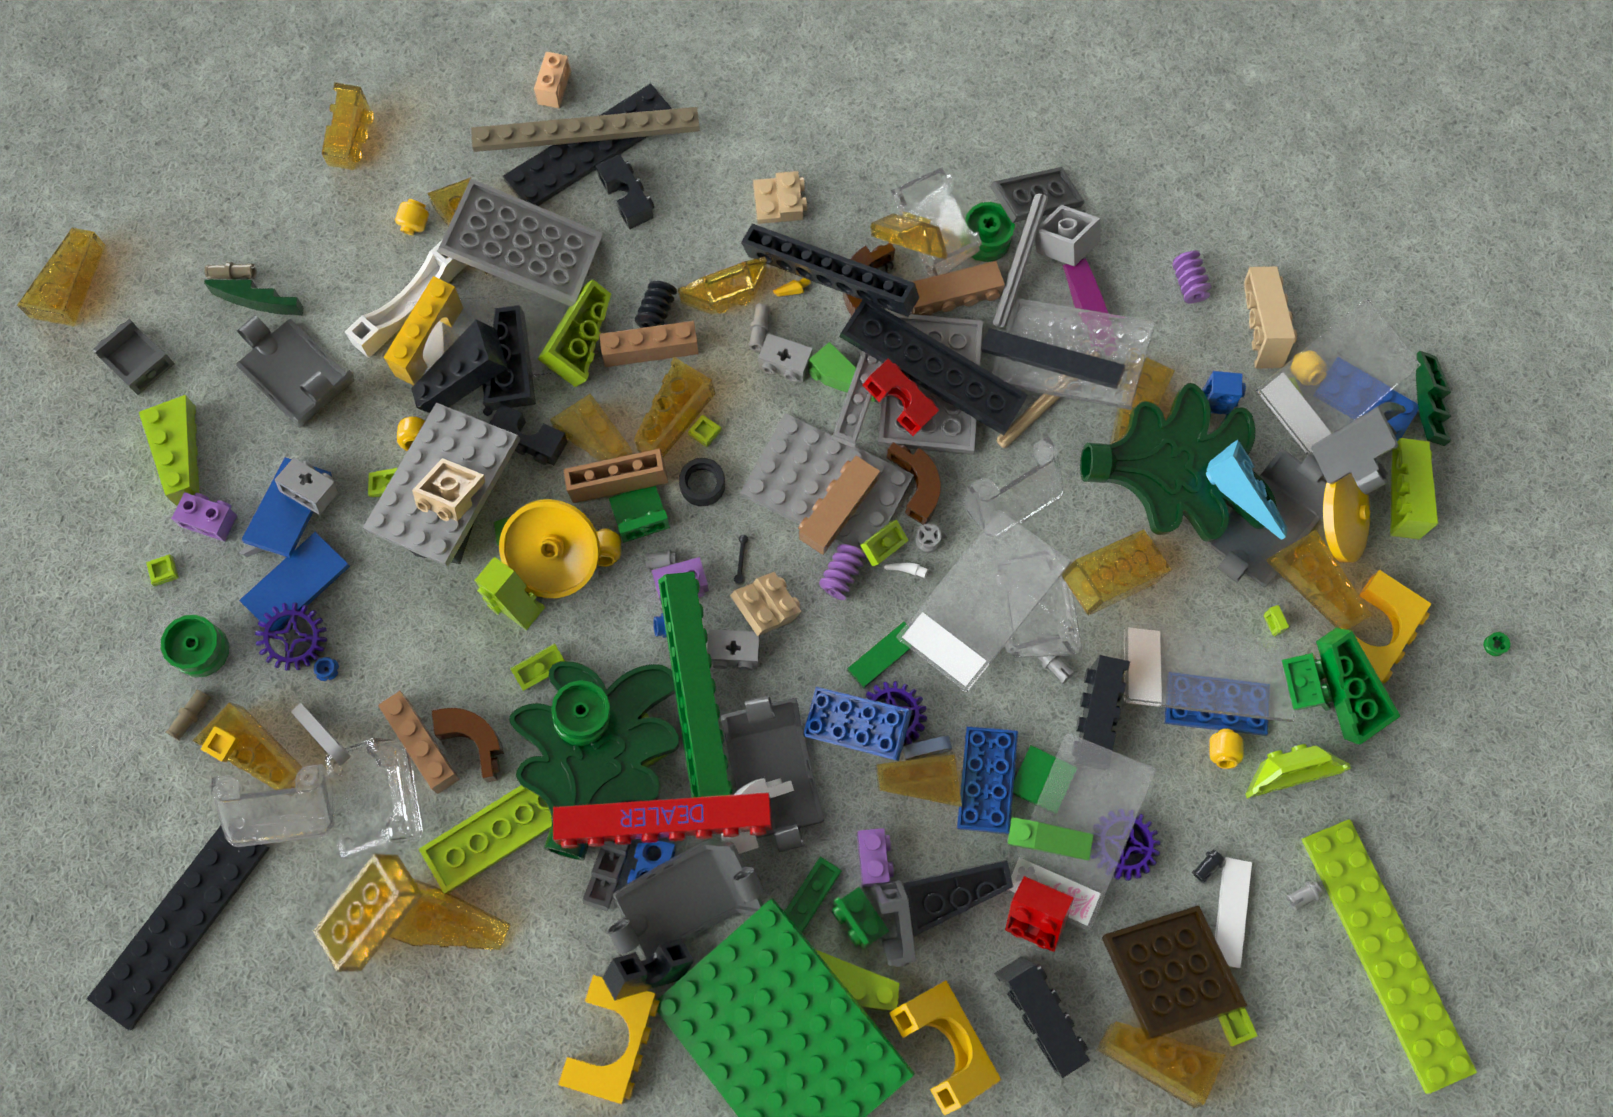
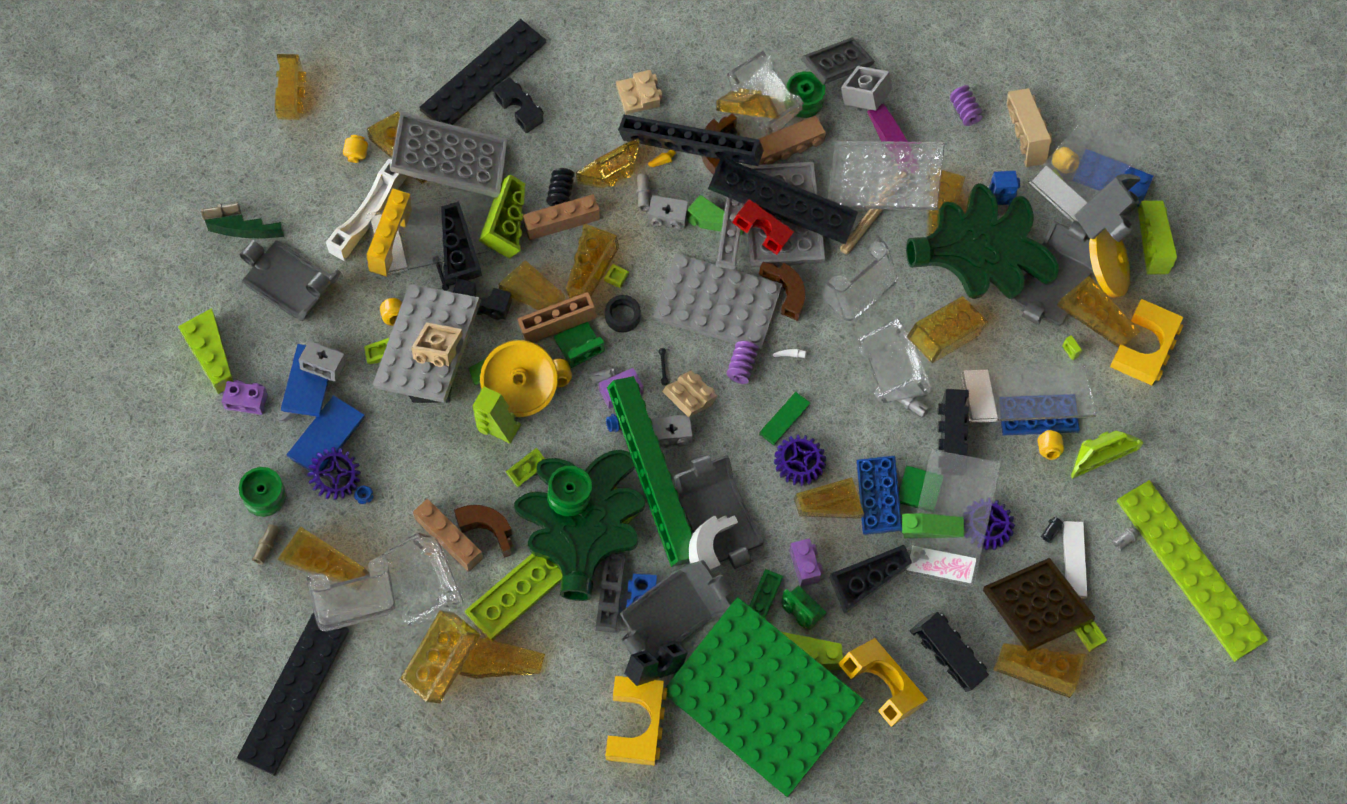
camera: 10 degrees left, 5 degrees down
(64, 280) = (92, 236): clear yellow wedge -> none
(133, 356) = (159, 287): dark grey panel -> none
(162, 570) = (219, 442): lime tile -> none
(220, 744) = (301, 556): yellow plate -> none
(321, 734) = (374, 538): light grey beam -> none
(461, 369) = (423, 256): black wedge -> none
(552, 80) = (443, 27): light nougat brick -> none
(585, 129) = (477, 61): dark tan plate -> none
(662, 819) = (647, 553): red brick -> none
(838, 505) = (731, 313): medium nougat brick -> none
(857, 723) = (775, 468): blue tile -> none
(884, 542) = (770, 336): lime plate -> none
(891, 899) = (836, 601): dark grey panel -> none
(925, 533) = (802, 324): light grey wheel -> none
(927, 748) = (831, 477): sand blue beam -> none
(983, 600) = (852, 365): clear piece -> none
(1020, 260) = (834, 112): light grey axle -> none
(1038, 913) = (934, 580): red slope -> none
(1053, 358) = (872, 181): black tile -> none
(1235, 478) = (1022, 246): medium azure wedge -> none
(1306, 682) = (1101, 386): green bracket -> none
(1355, 687) = (1137, 385): green wedge -> none
(1431, 391) = (1159, 165): dark green slope -> none
(1503, 647) = (1241, 342): green bush -> none

